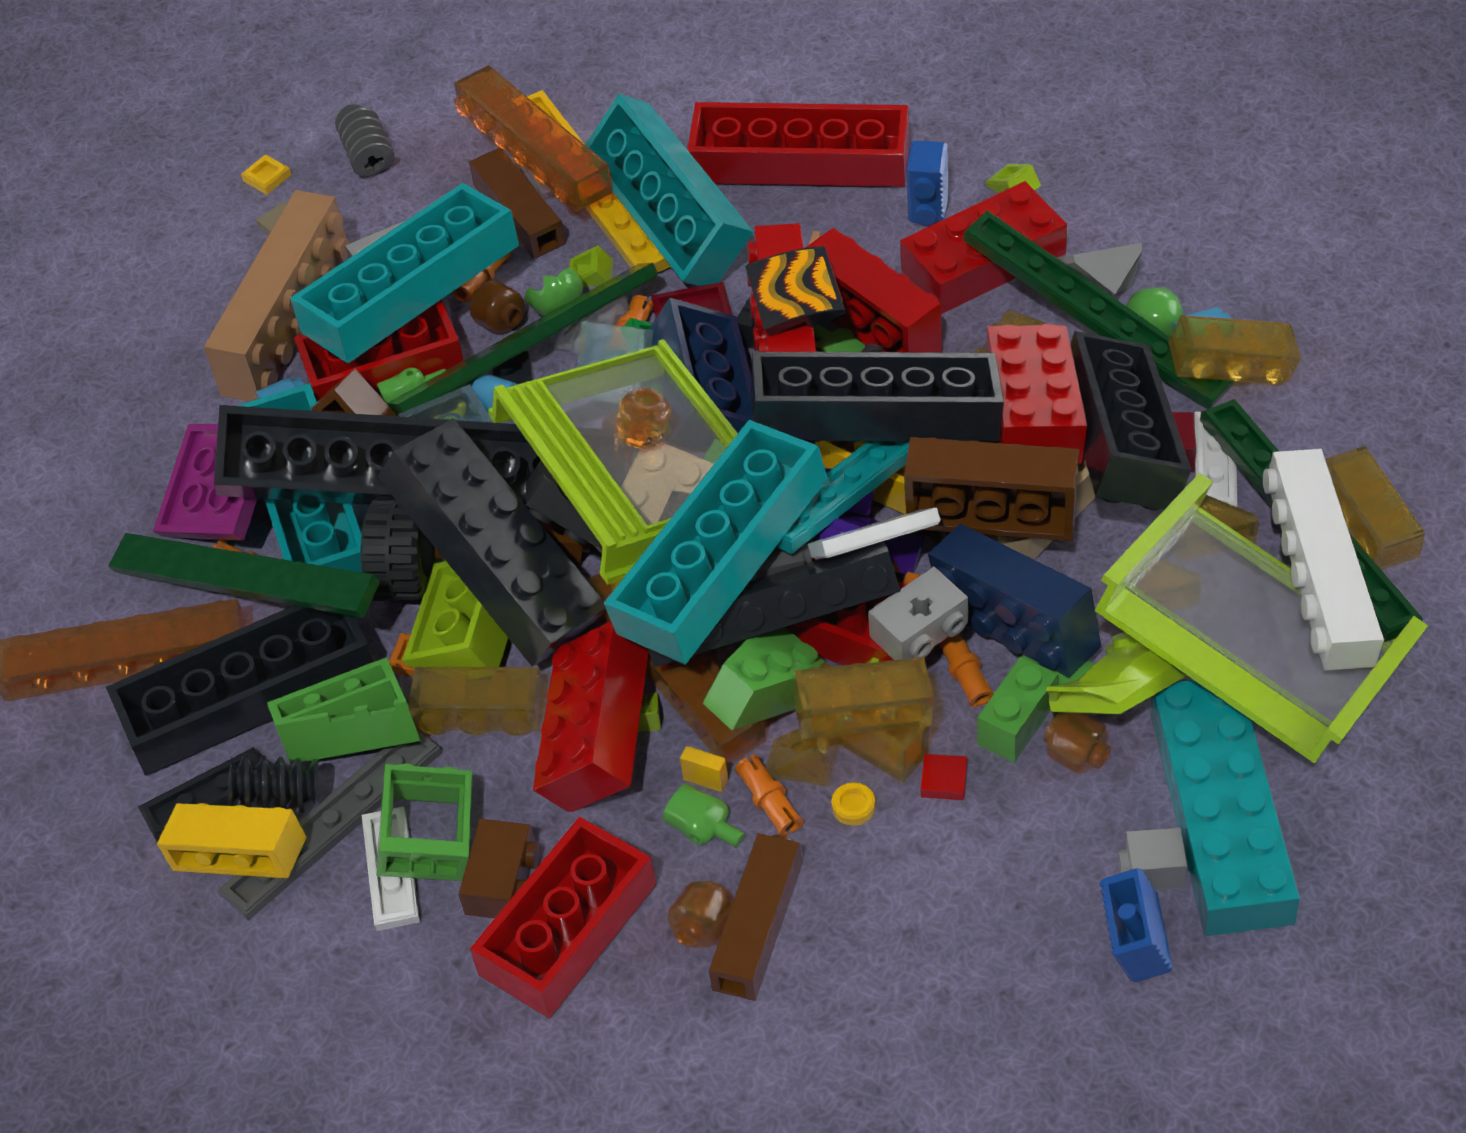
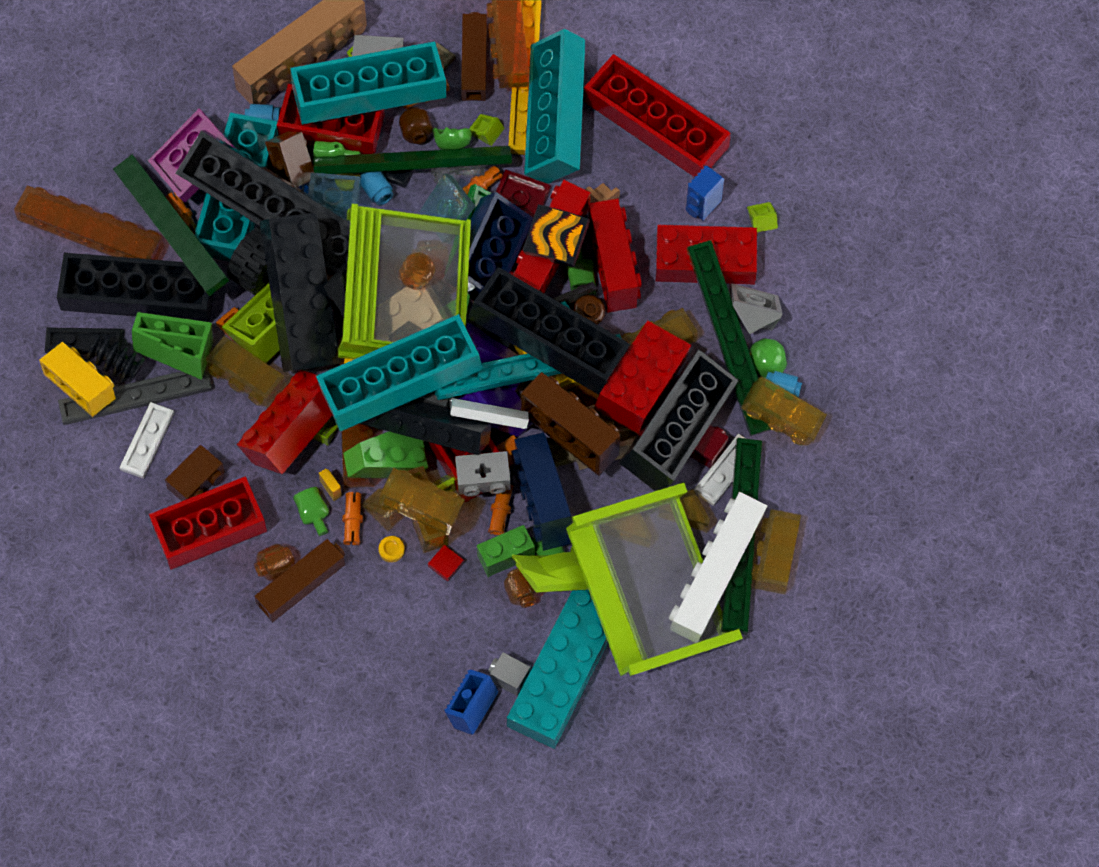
camera: 25 degrees right, 15 degrees up
(424, 856) = (160, 447): bright green window -> none

